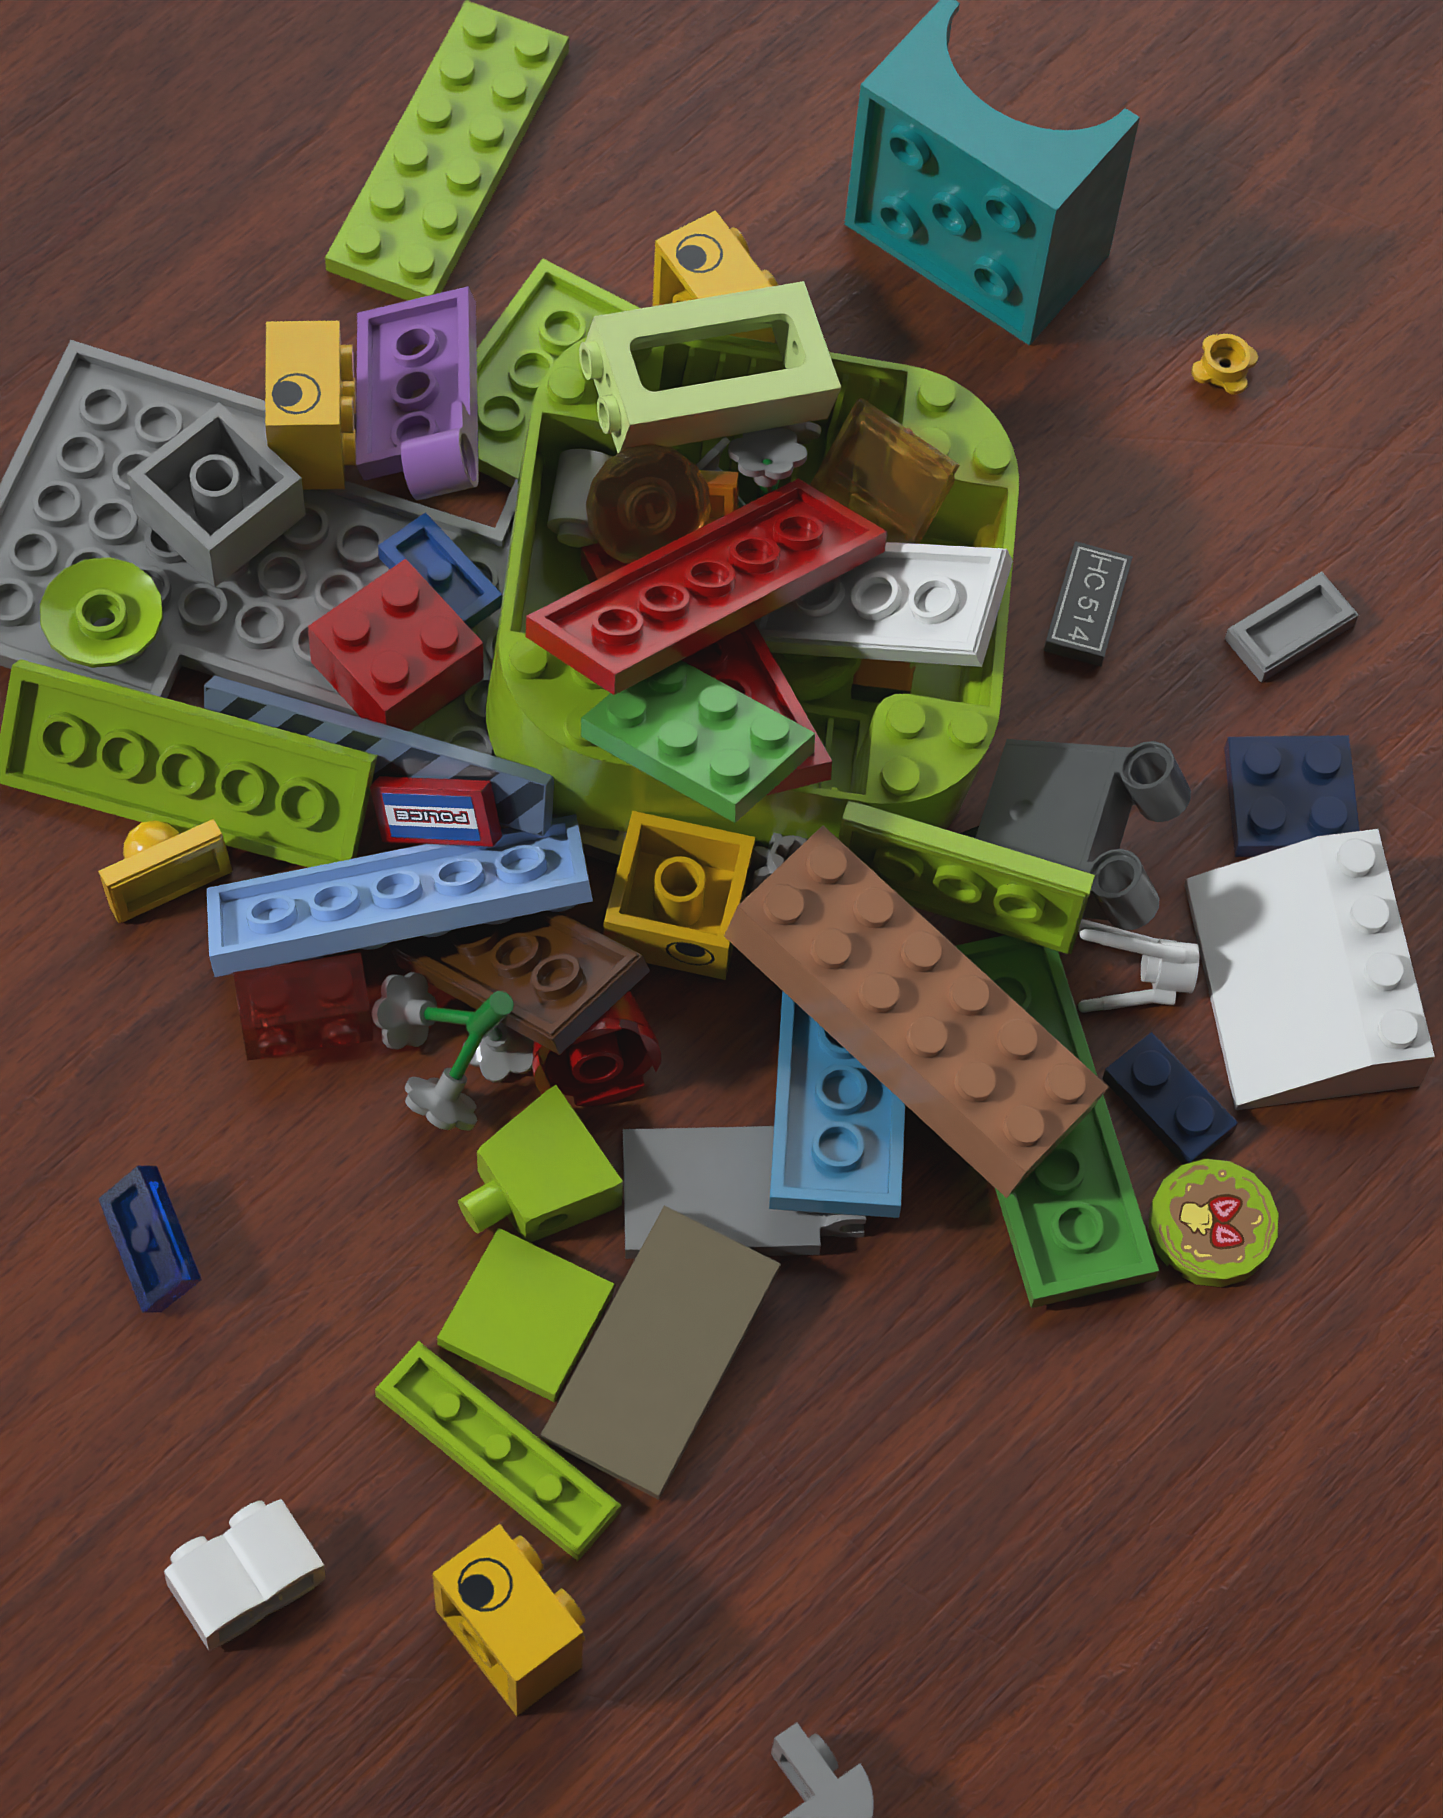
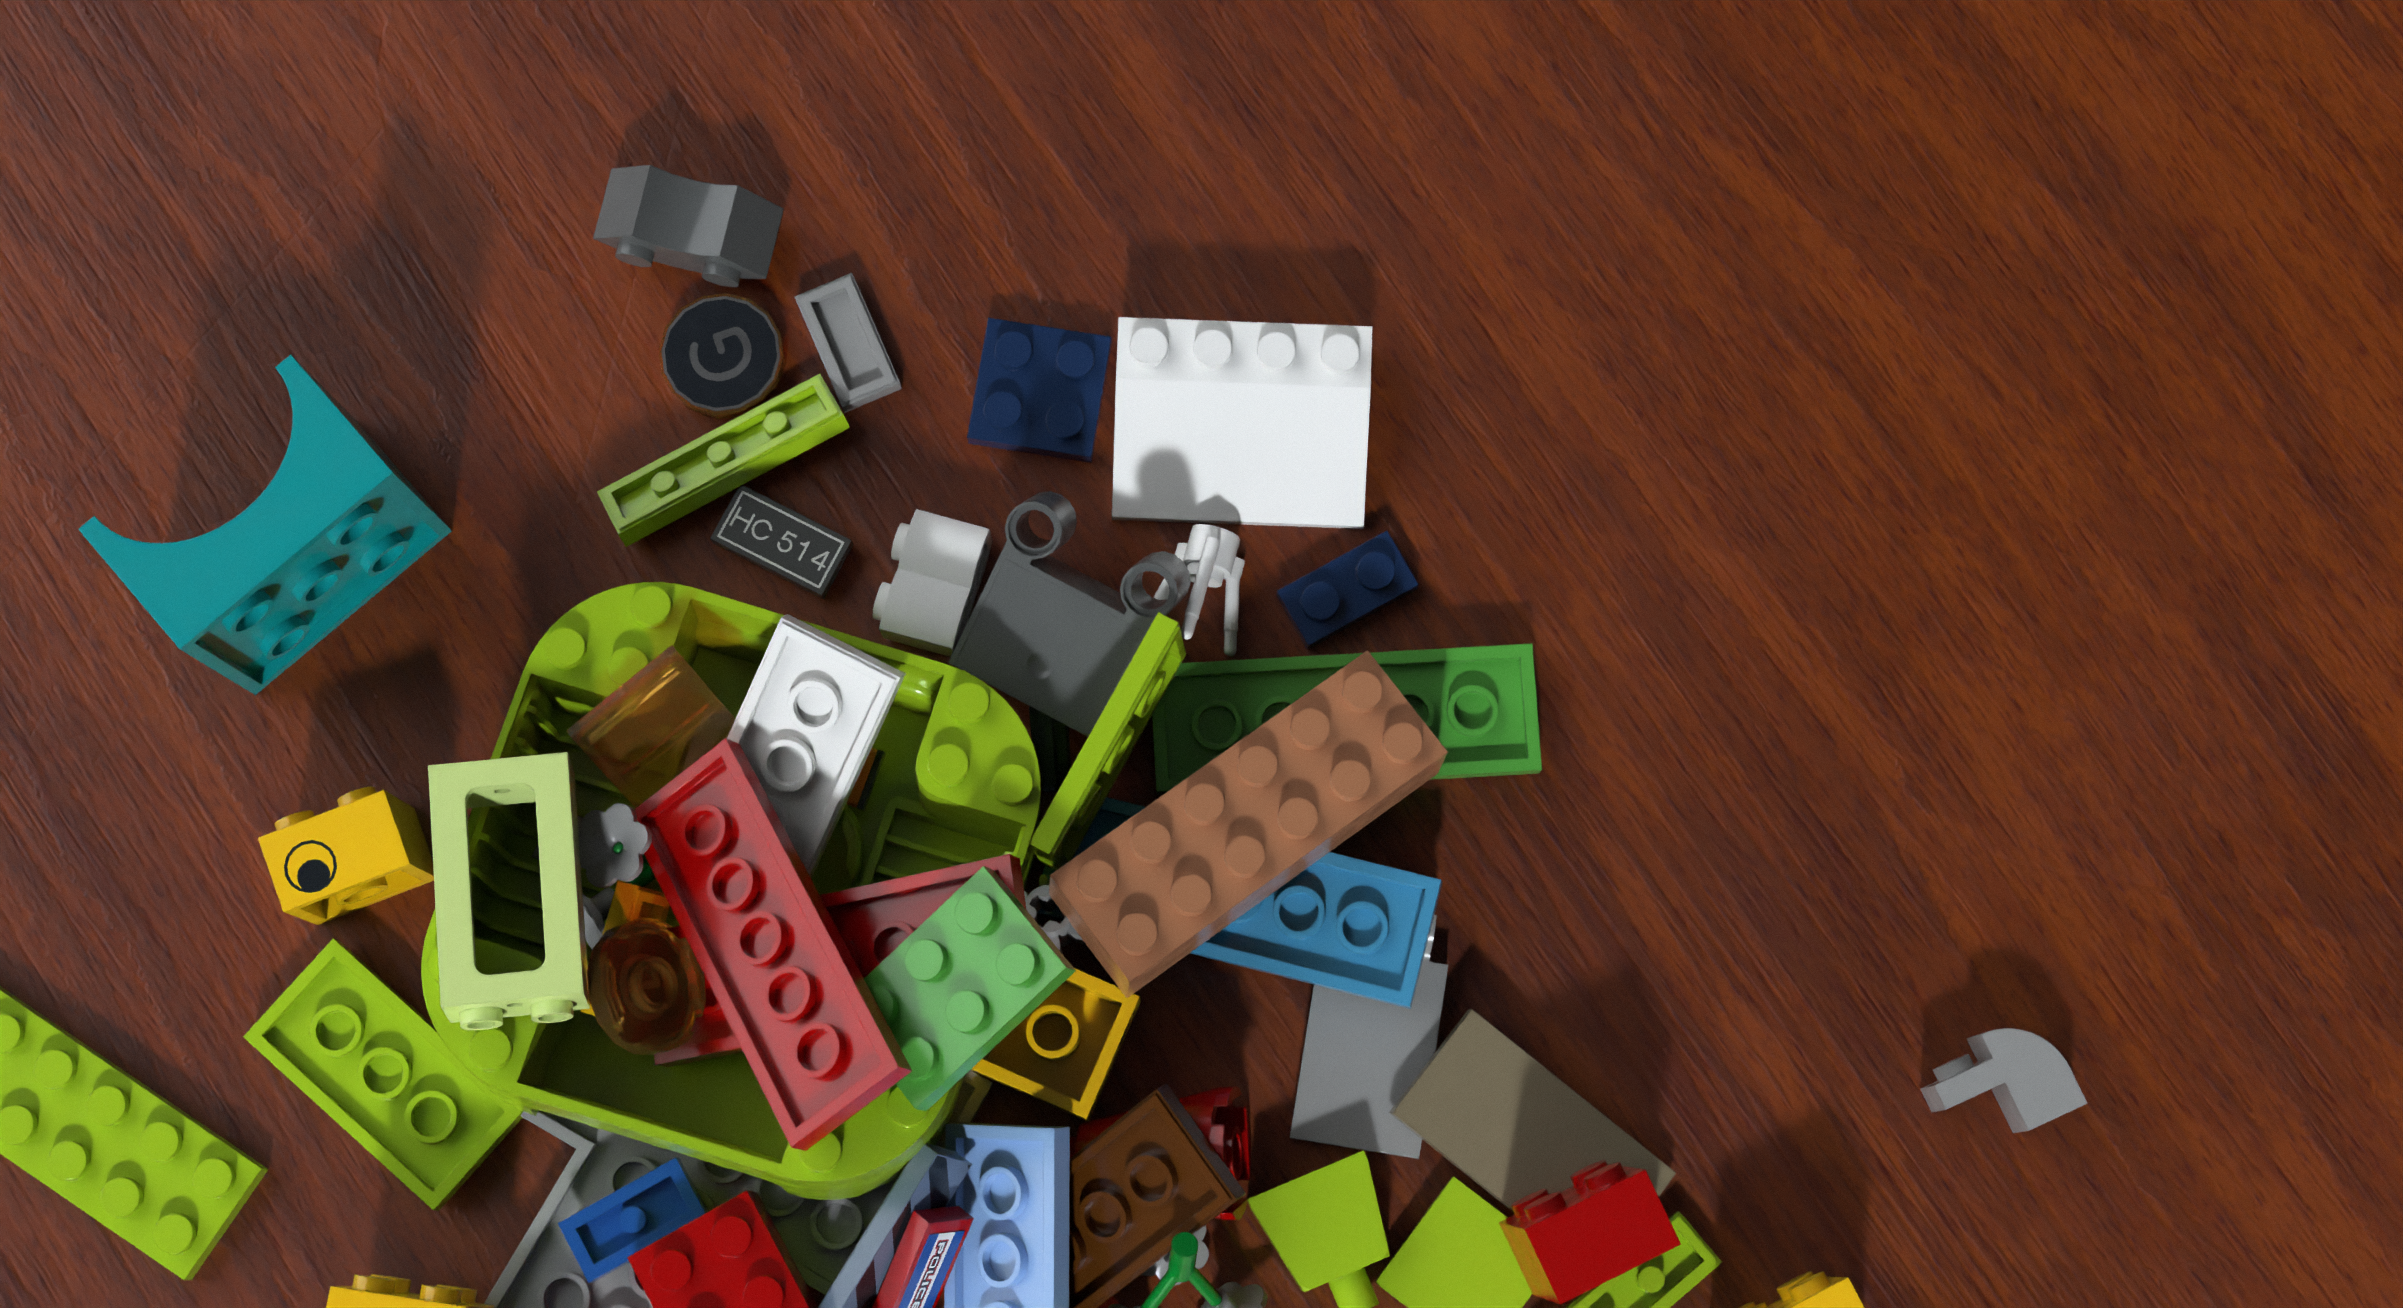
camera: 75 degrees left, 15 degrees up
(438, 431) = (453, 1195): medium lavender hinge -> none
(570, 491) = (591, 1057): white brick -> none
(582, 1384) = (1588, 1231): none -> red brick
(1069, 714) = (934, 582): none -> white brick
(1152, 540) = (723, 460): none -> lime tile
(1213, 1222) = (1481, 578): tile -> none
(1229, 350) = (517, 316): yellow plate -> none
(1249, 525) = (722, 355): none -> black tile
(1362, 469) = (688, 224): none -> dark grey brick

